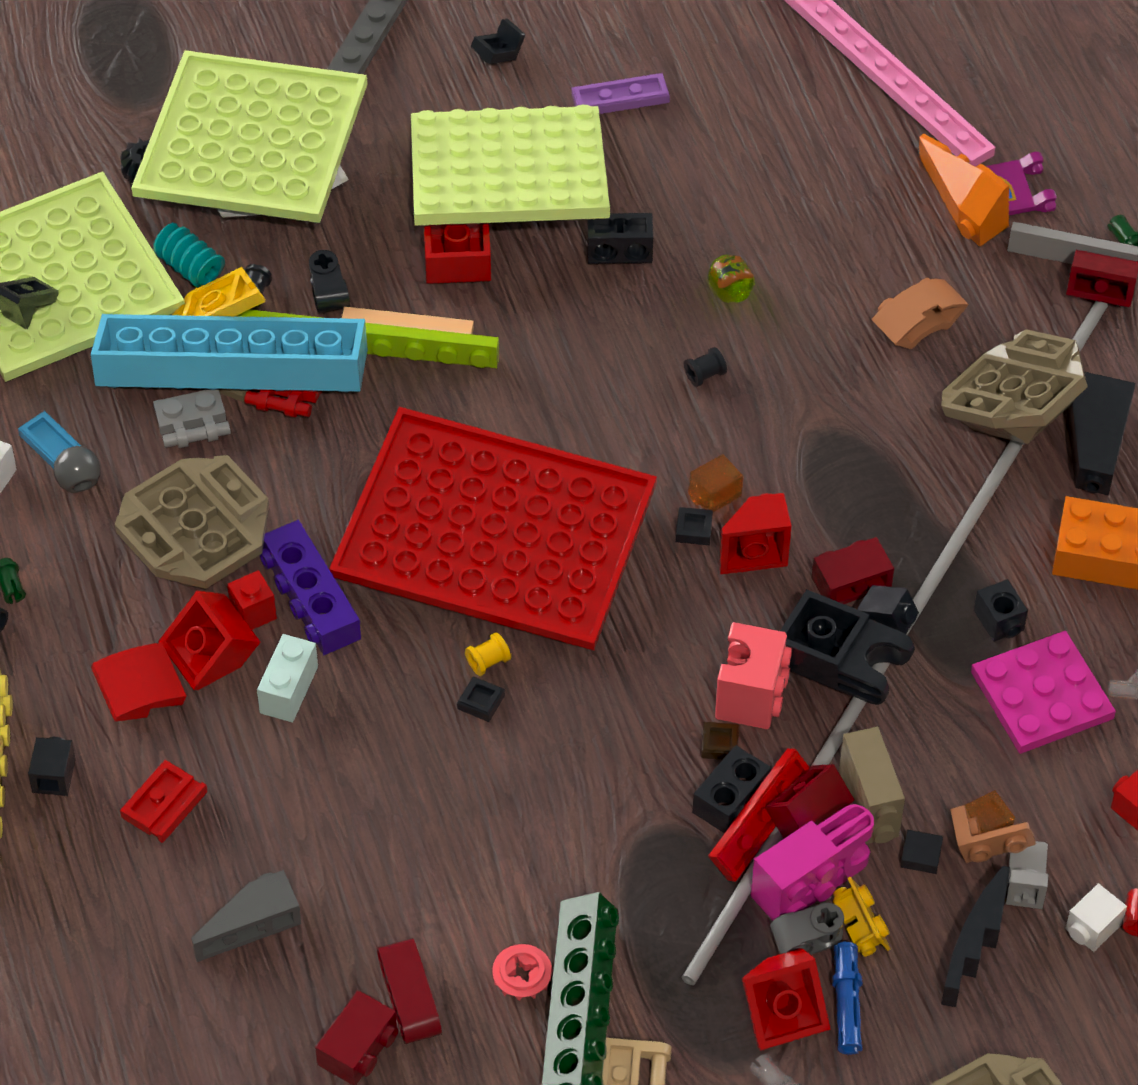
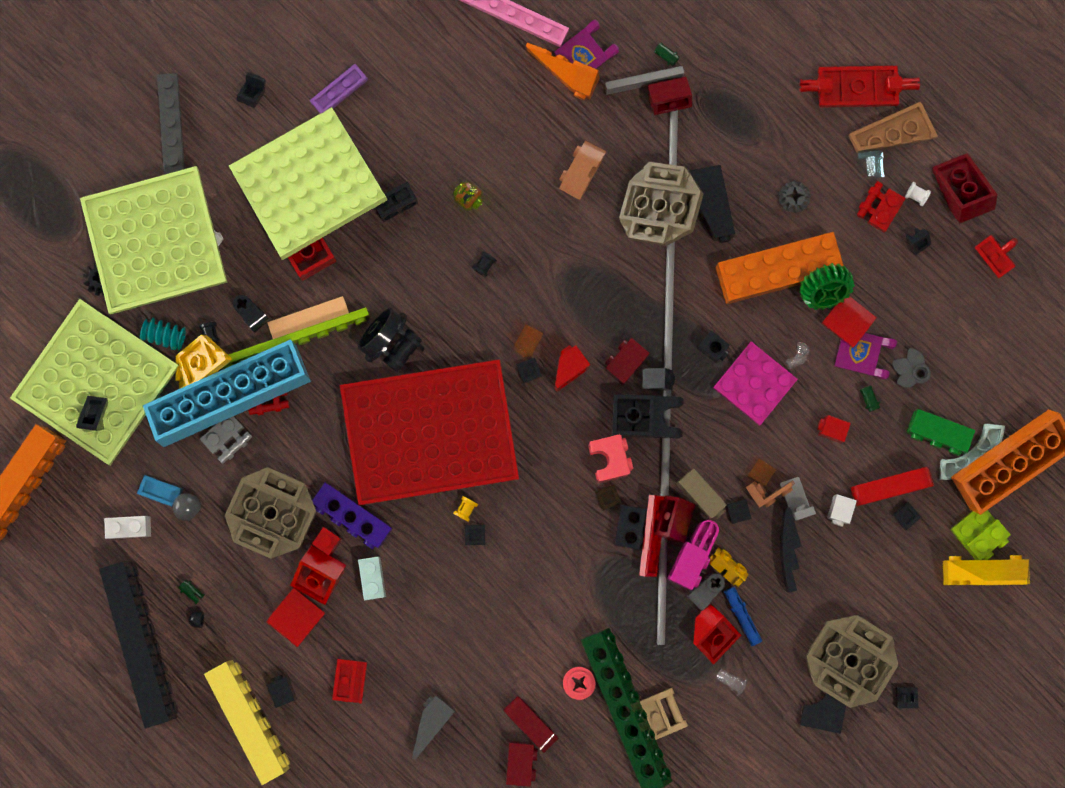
camera: 30 degrees left, 30 degrees up
(504, 370) = (381, 332): none -> black piece

